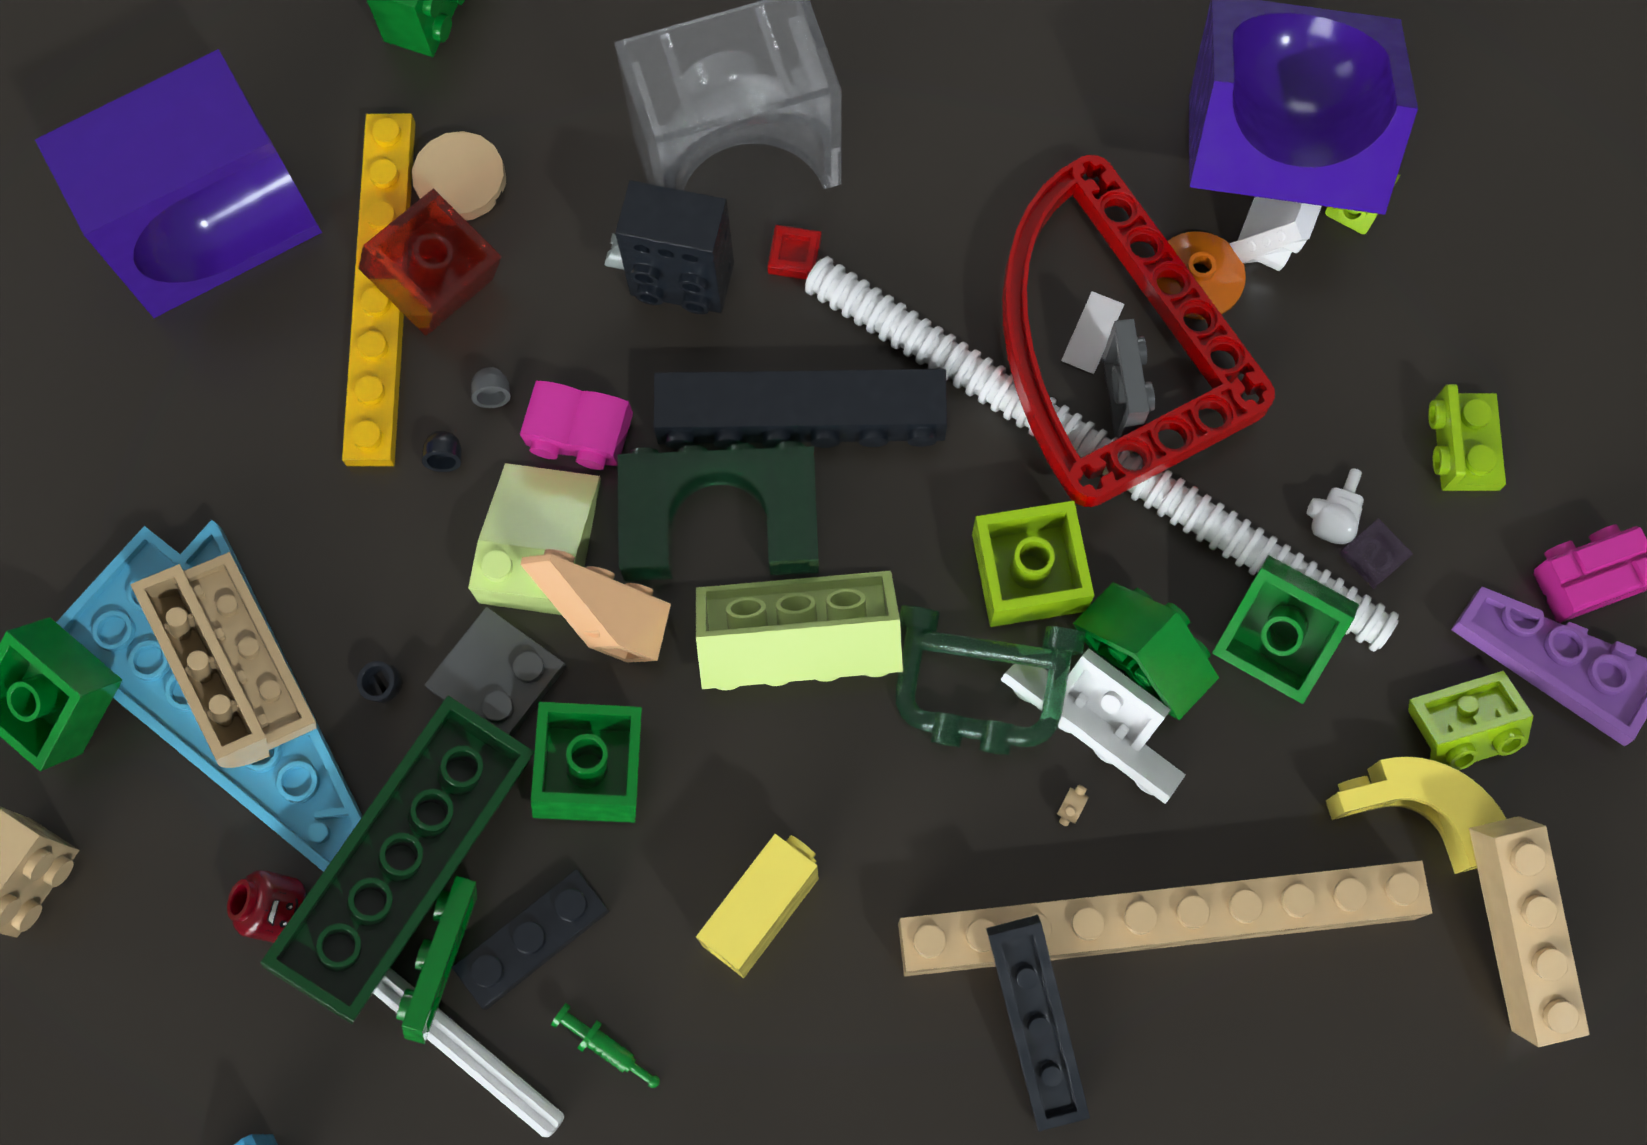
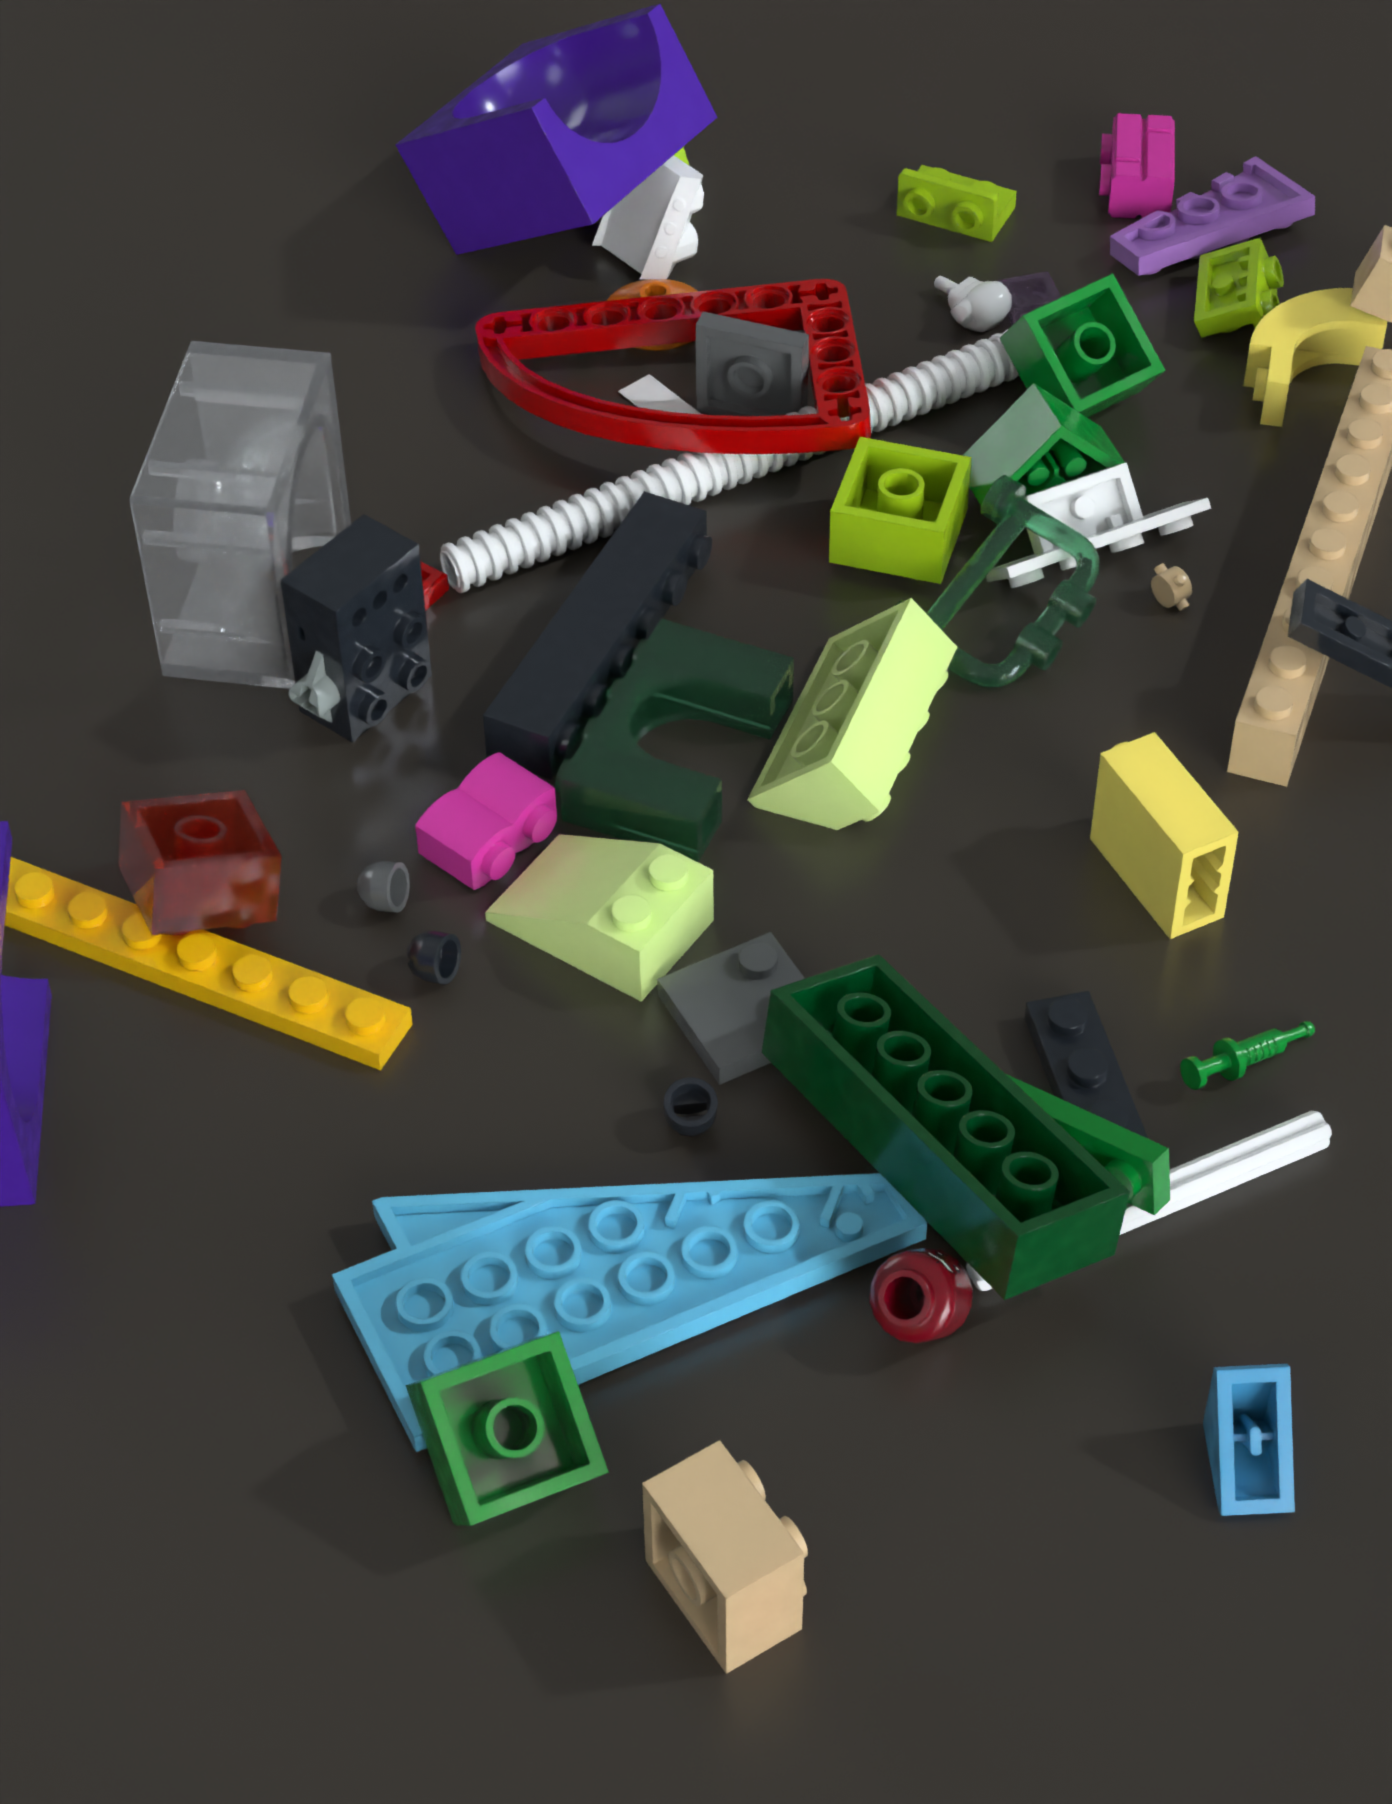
camera: 65 degrees left, 25 degrees down
(224, 660) = (581, 1213): tan brick -> none
(462, 170) = (78, 831): tan tile -> none
(586, 762) = (918, 917): green brick -> none
(604, 613) = (738, 841): light nougat slope -> none

